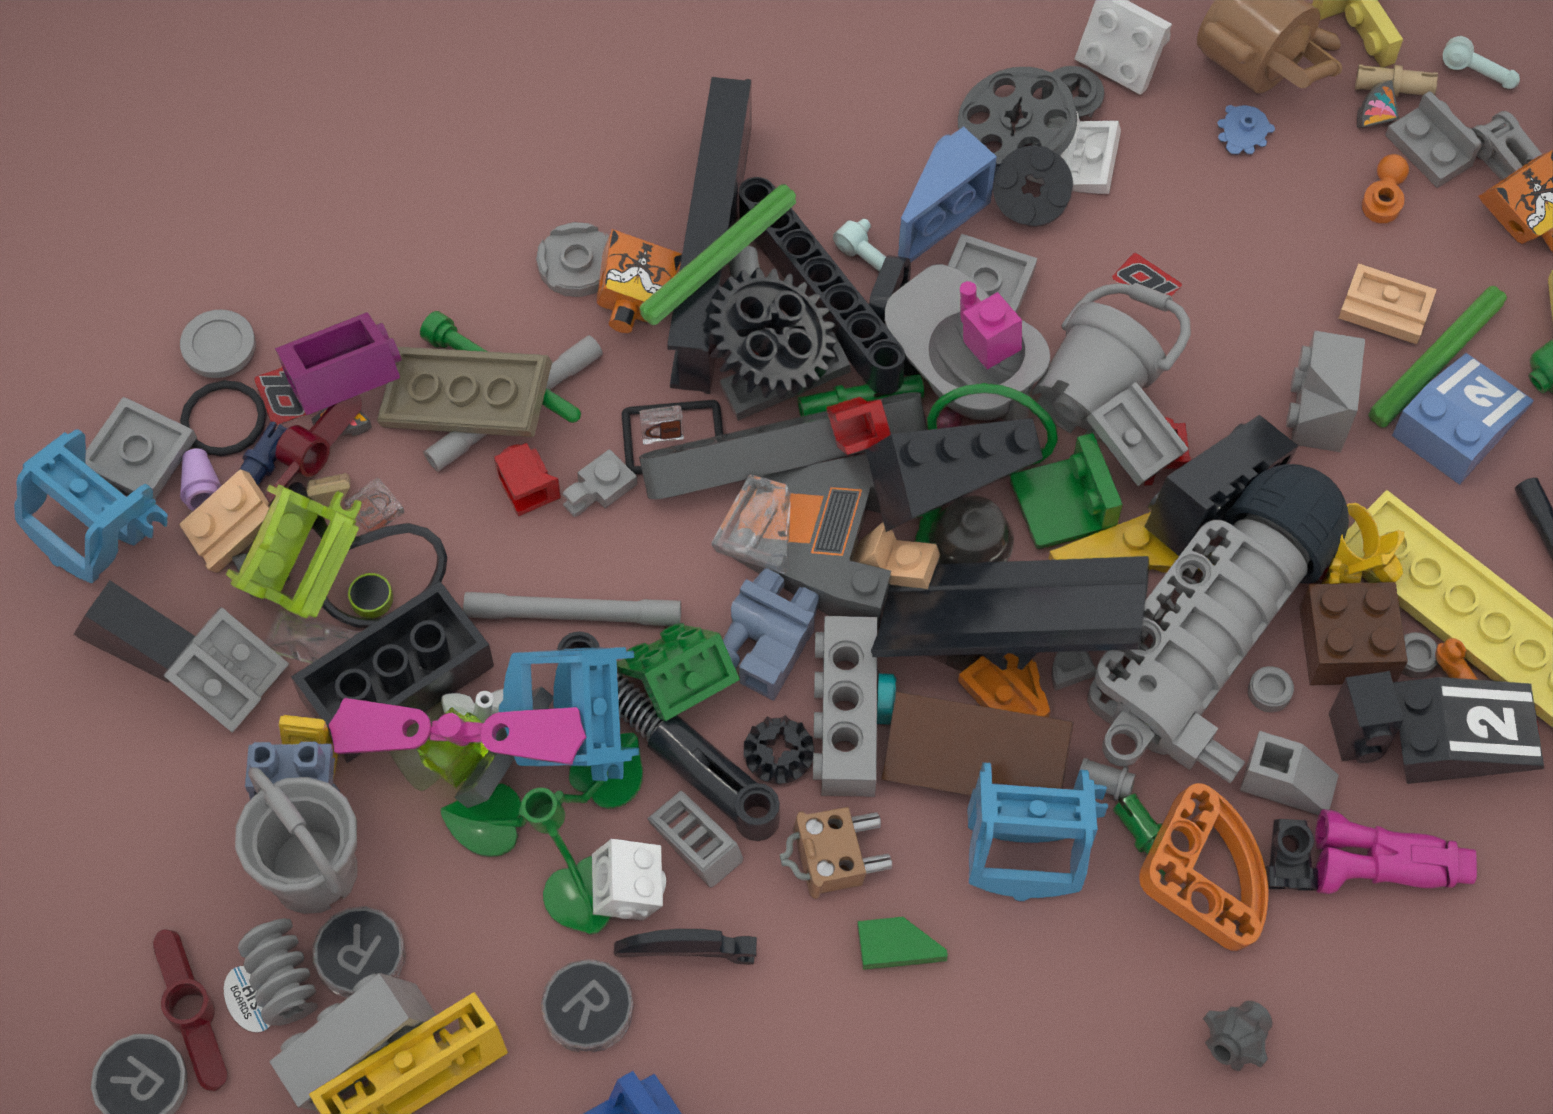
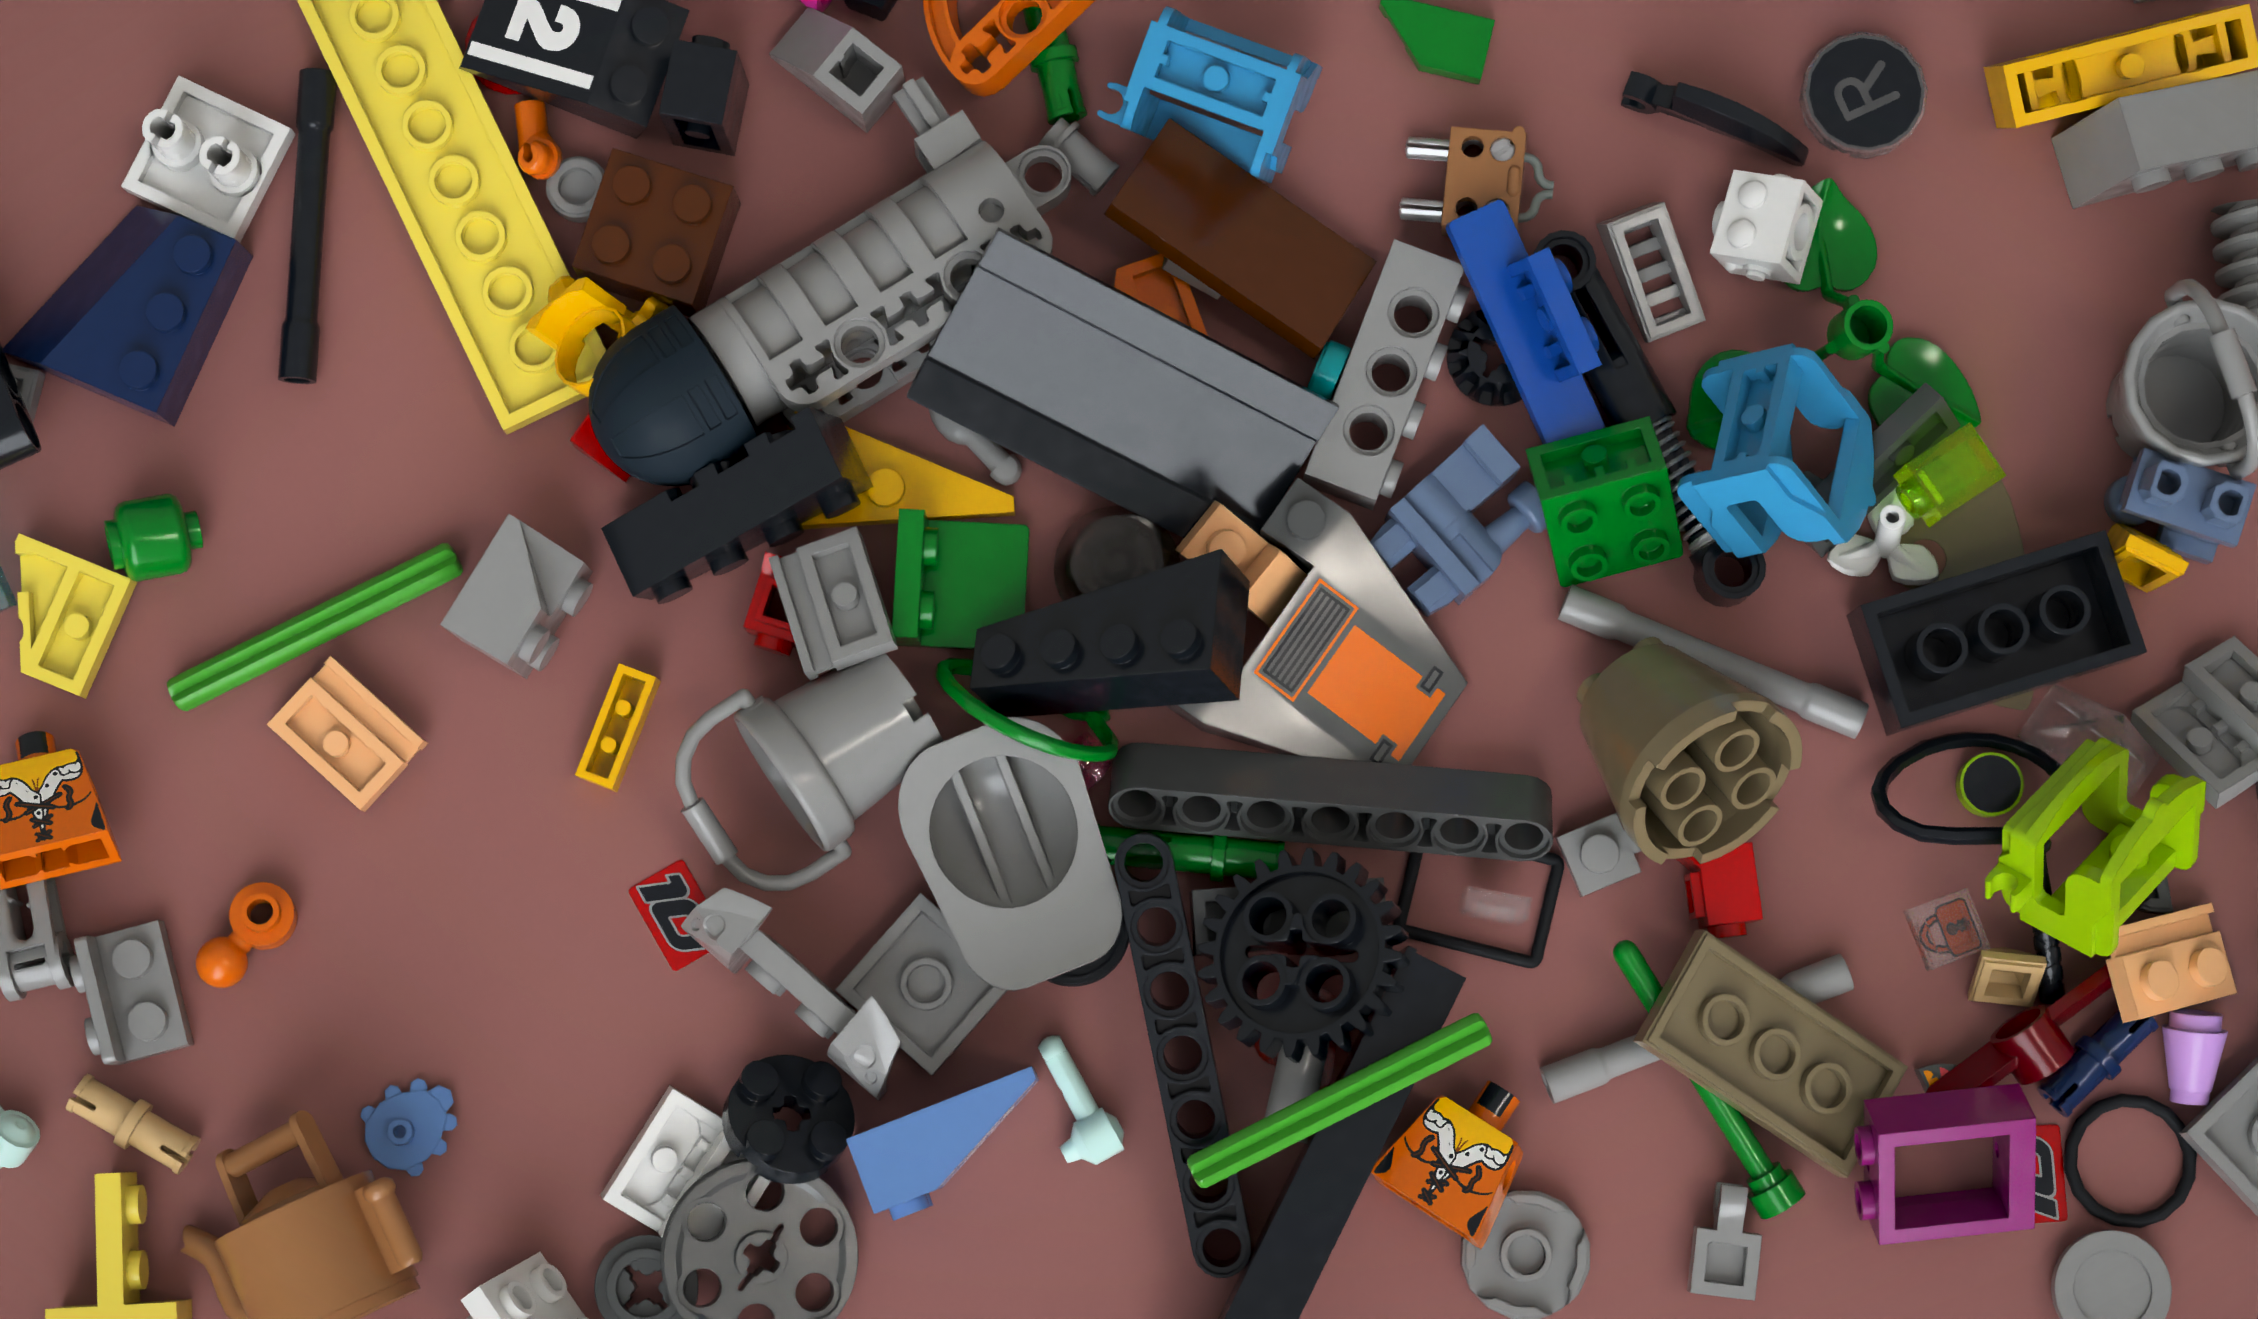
camera: 160 degrees left, 20 degrees up
(355, 946) = (2132, 261): black tile -> none
(458, 289) = (1725, 1257): none -> light grey plate
(533, 734) = (1856, 405): dark pink piece -> none
(579, 522) = (1685, 751): none -> dark tan cone
(758, 525) = (1416, 678): clear wing -> none
(767, 756) = (1531, 321): none -> blue bracket
(858, 424) = (1233, 749): red window -> none
(892, 276) = (1082, 1003): black beam -> none
(989, 326) = (981, 836): dark pink brick -> none
(1062, 245) = (730, 931): none -> light grey piece
(1231, 358) = (618, 727): none -> yellow piece
(1270, 689) = (799, 210): light grey tile -> none
(1378, 105) = (184, 1084): tile -> none
(1460, 417) = (327, 515): medium blue slope -> none

